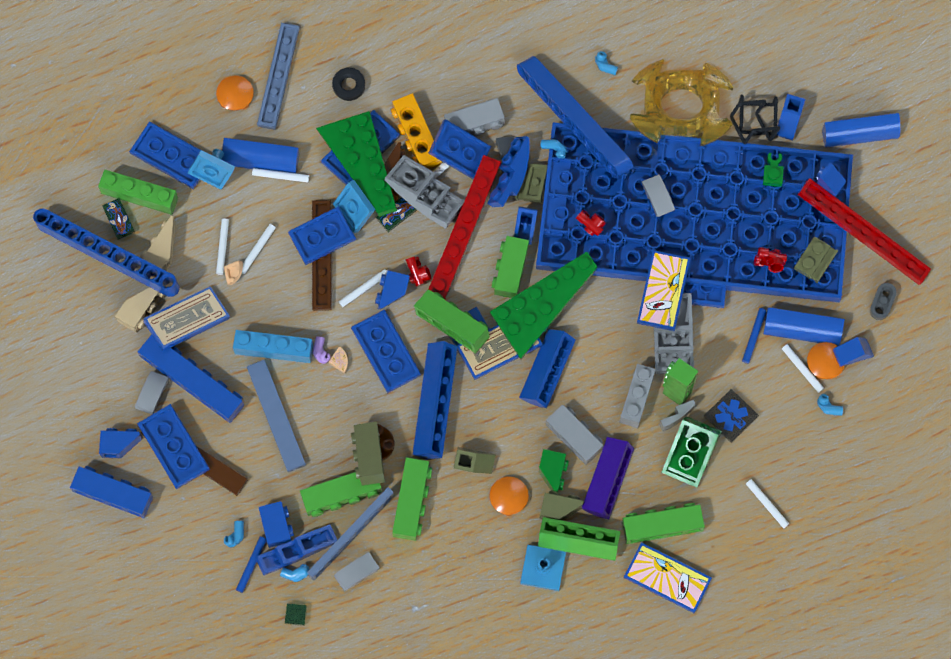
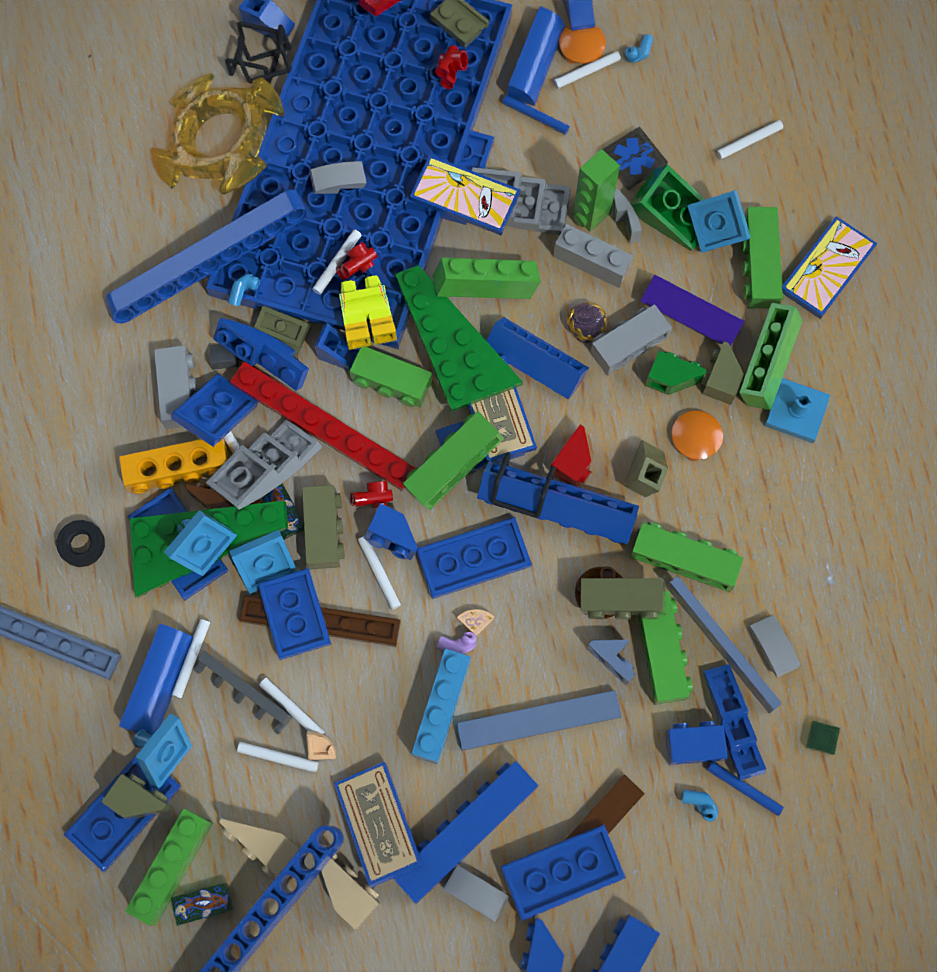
camera: 80 degrees left, 0 degrees up
(178, 157) = (133, 800): none -> olive slope
(234, 93) = (52, 703): orange dish -> none
(264, 214) = (244, 689): none -> dark grey hinge
(295, 575) = (769, 728): dark azure arm -> none
(329, 454) = (607, 651): none -> sand blue slope
(354, 158) = (200, 542): none -> dark azure tile
(388, 242) = (322, 527): none -> olive brick
(454, 391) = (505, 462): none -> black piece
(471, 408) = (574, 459): none -> red slope
(550, 237) = (363, 305): none -> hips
(584, 401) = (586, 321): none -> clear purple hair
(590, 209) = (336, 262): none -> white bar
(597, 318) = (486, 278): none -> bright green brick
(603, 64) = (139, 219): dark azure arm -> none
(682, 483) = (719, 221): none -> dark azure tile
(773, 173) = (337, 45): green plate -> none

